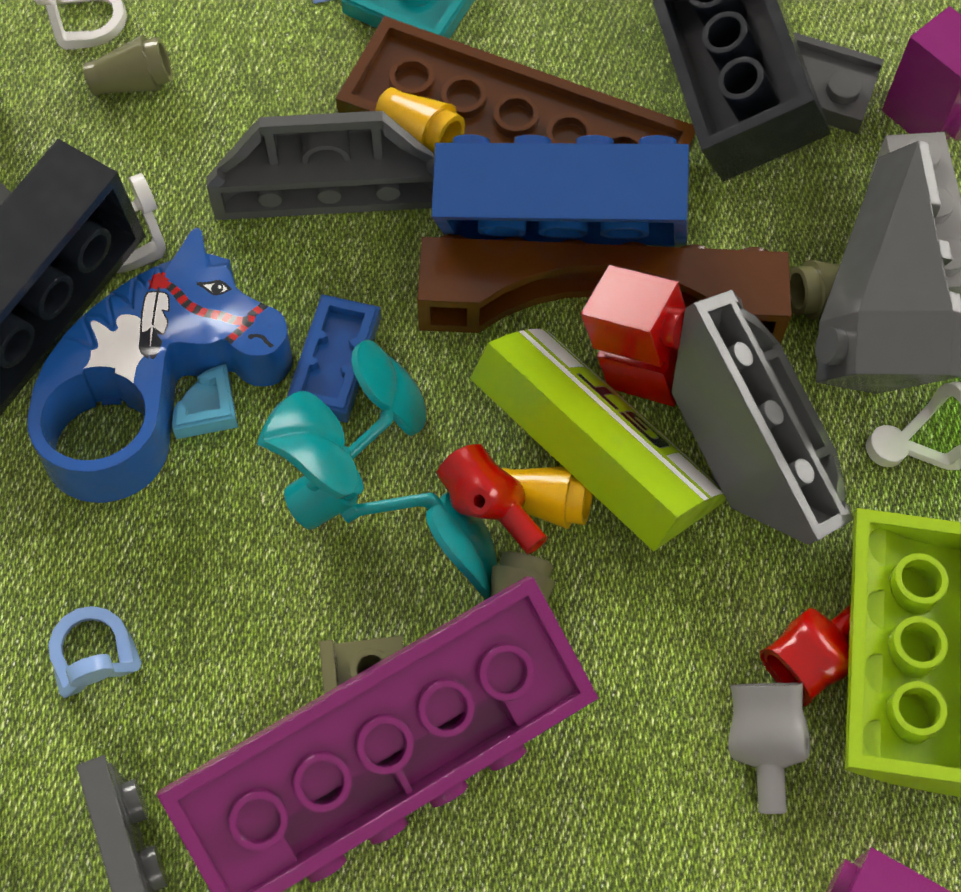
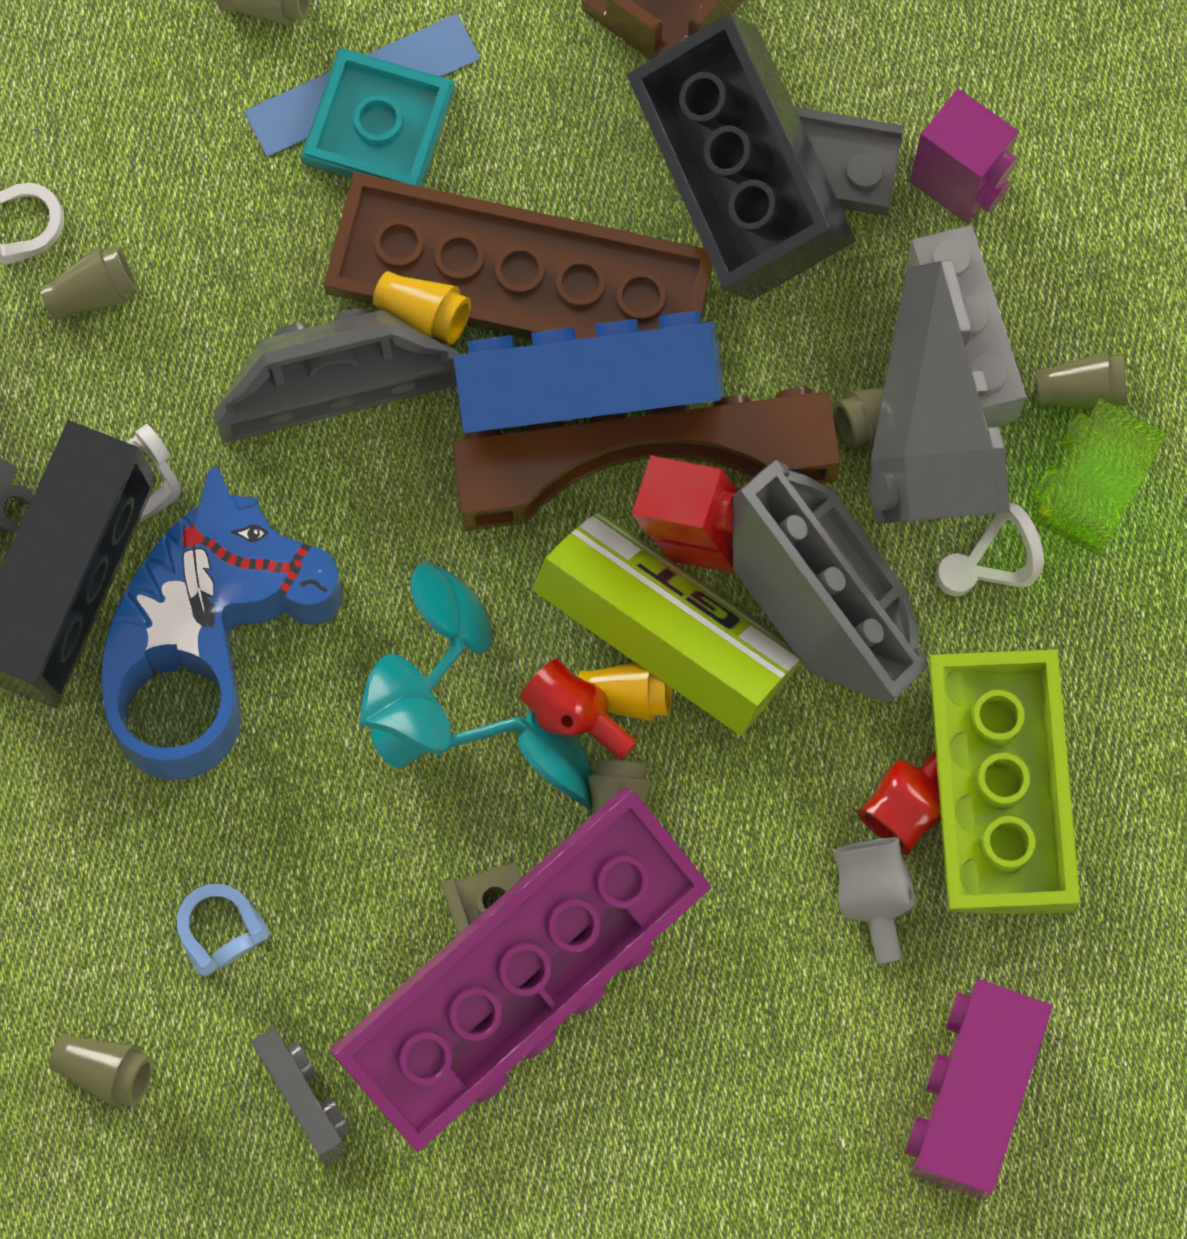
camera: 10 degrees left, 10 degrees up
(206, 405) = (267, 655): medium azure tile -> none
(327, 352) = (382, 583): blue plate -> none

